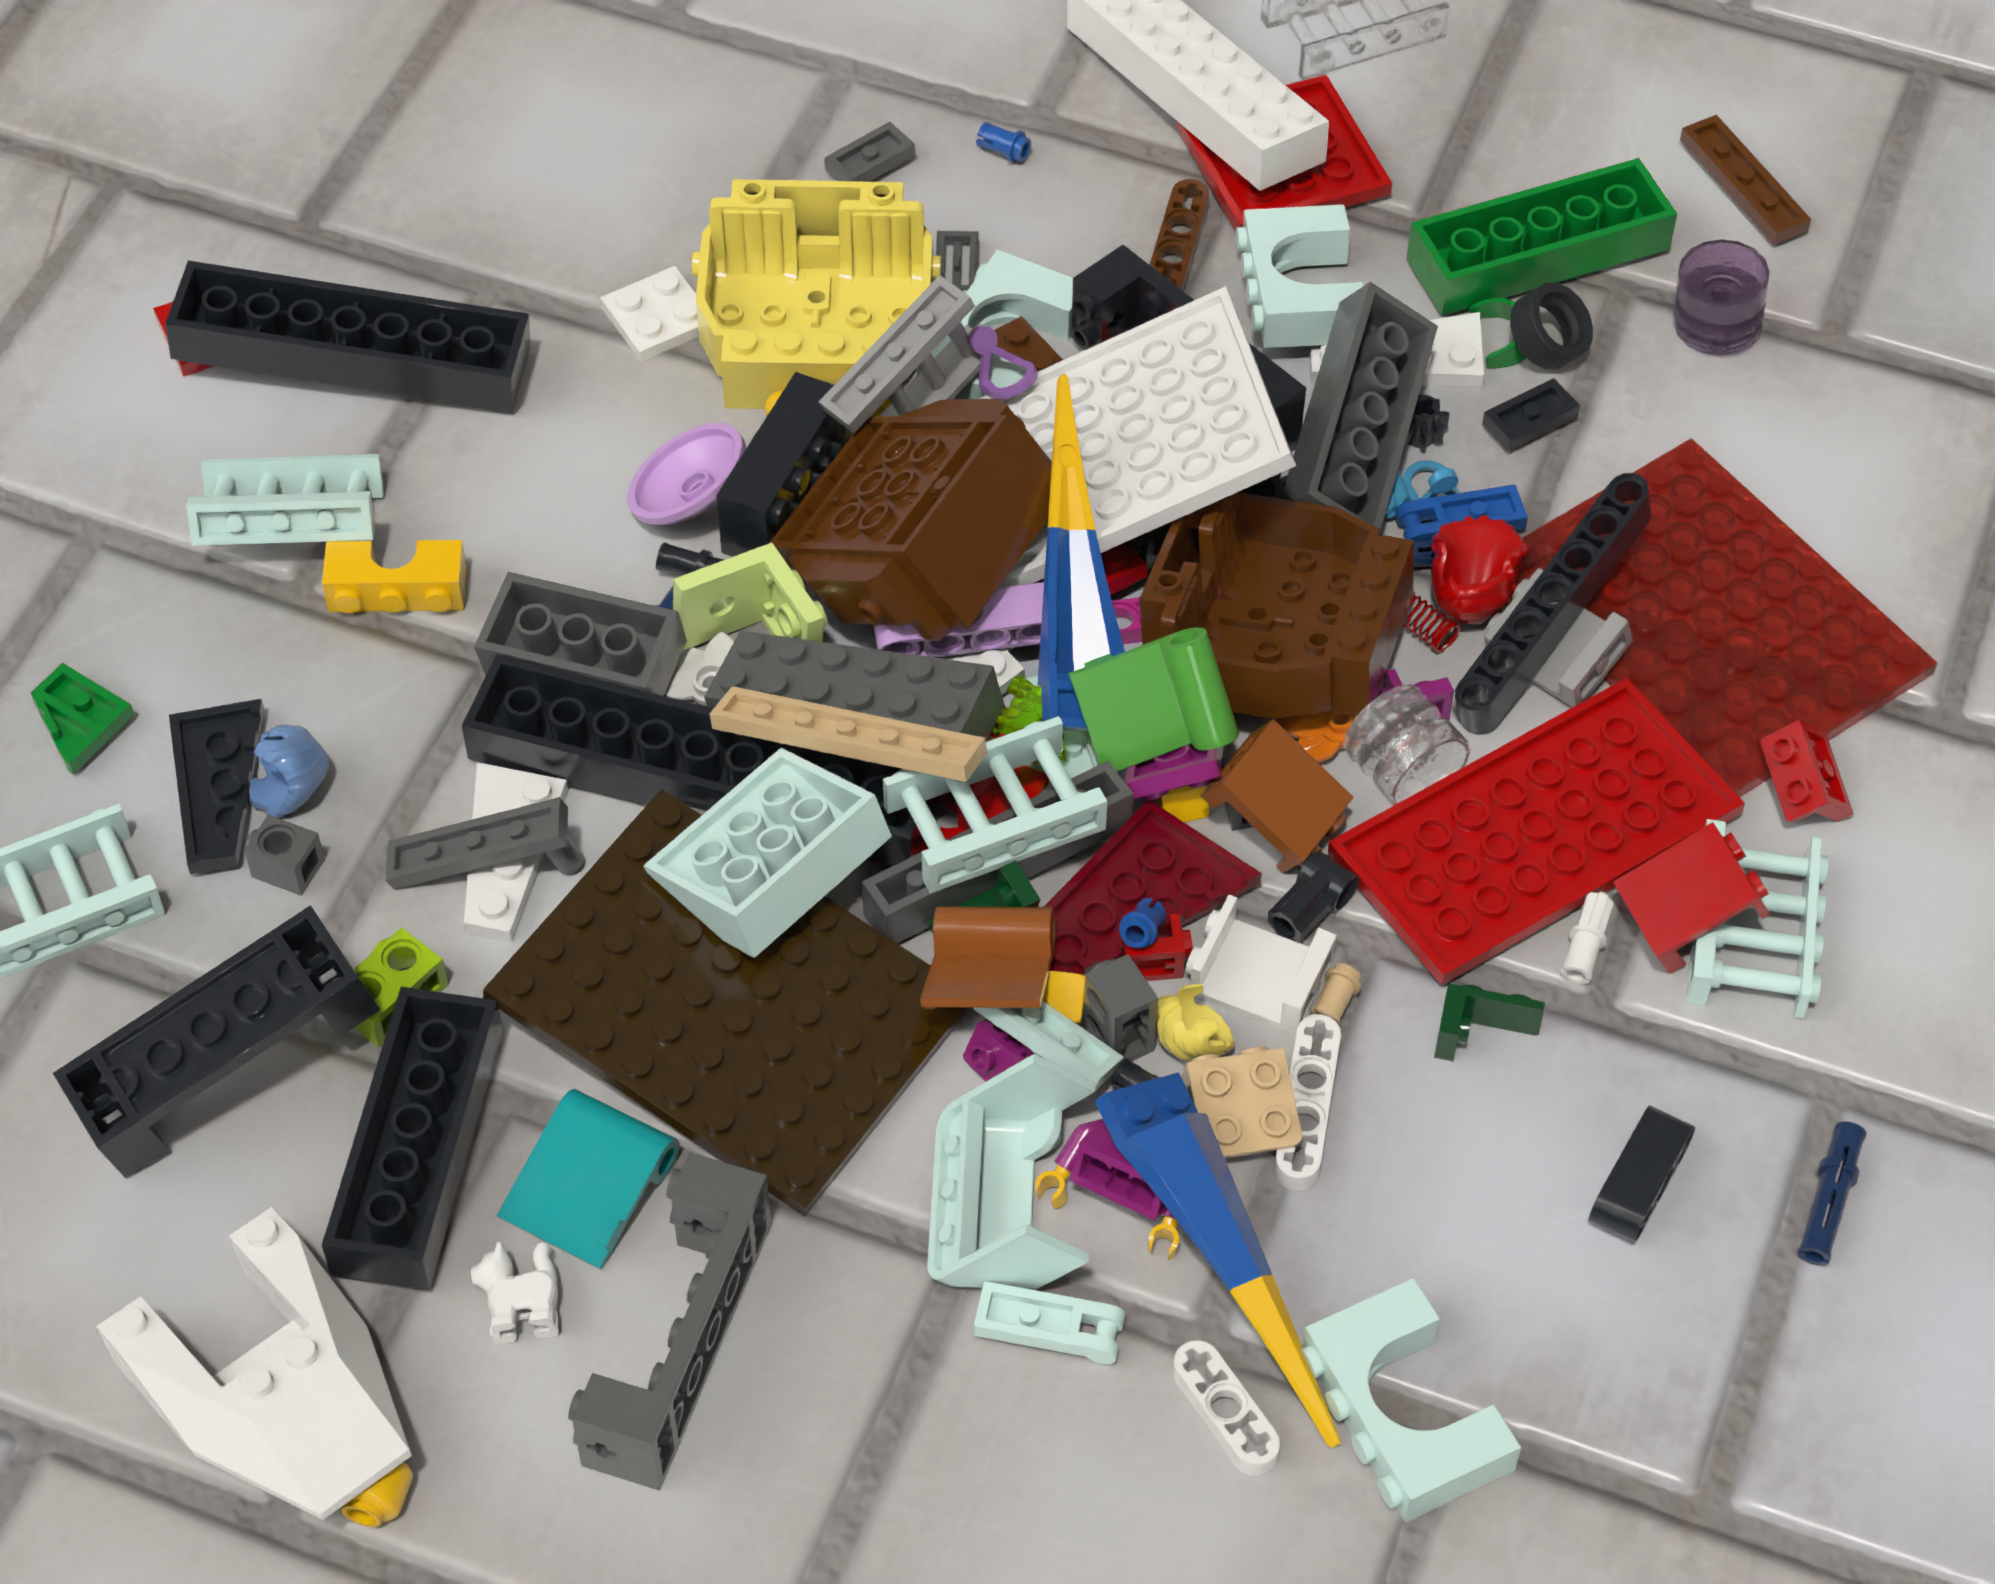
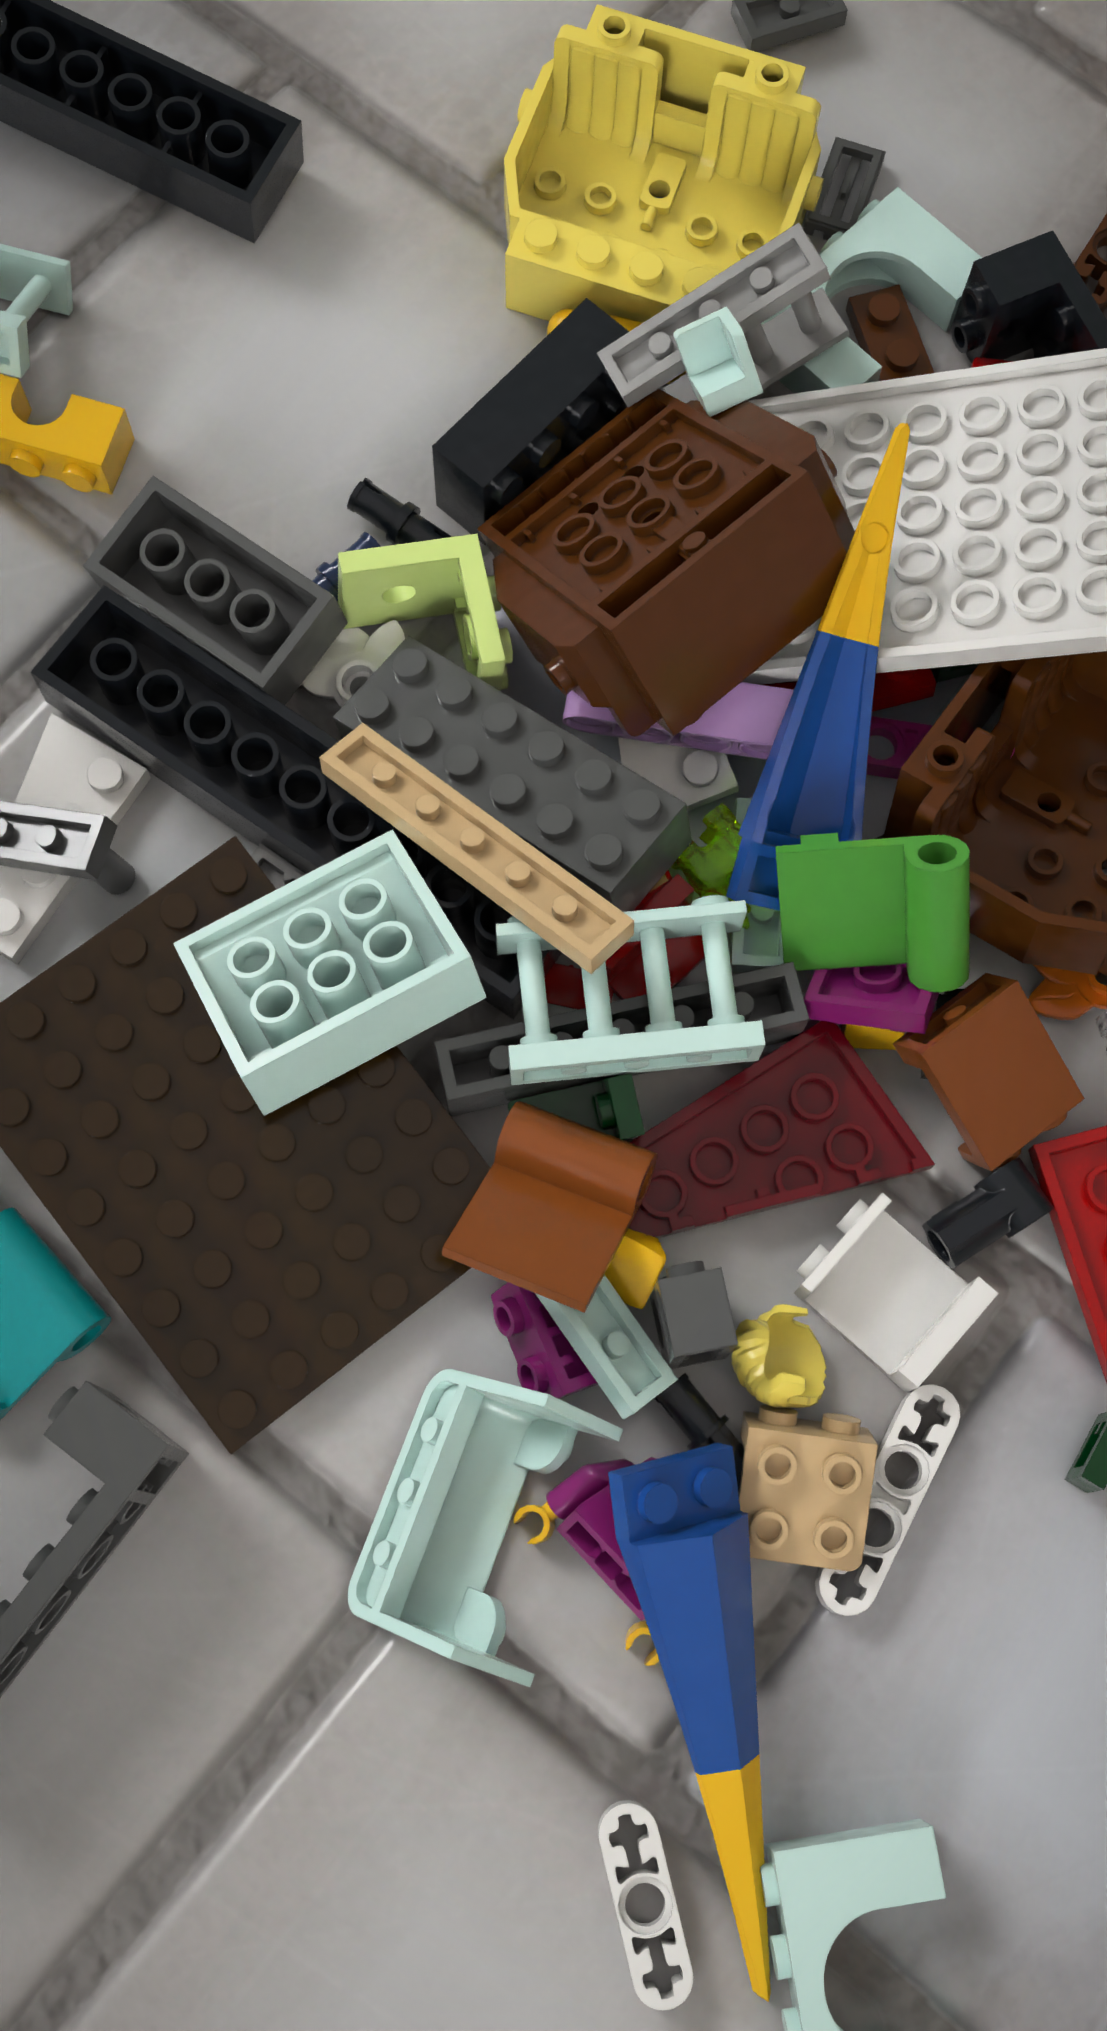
camera: 15 degrees right, 20 degrees up
(654, 313) = (462, 154): white plate -> none
(685, 474) = (419, 393): lavender dish -> none
(912, 379) = (718, 361): none -> light aqua panel
(984, 341) = (832, 322): medium lavender piece -> none
(1002, 141) = (958, 36): blue pin -> none
(1048, 1321) = (467, 1712): light aqua plate -> none
(1140, 926) = (754, 1214): blue pin -> none
(1166, 955) = (761, 1238): red bracket -> none
(1340, 985) = (972, 1361): tan pin -> none

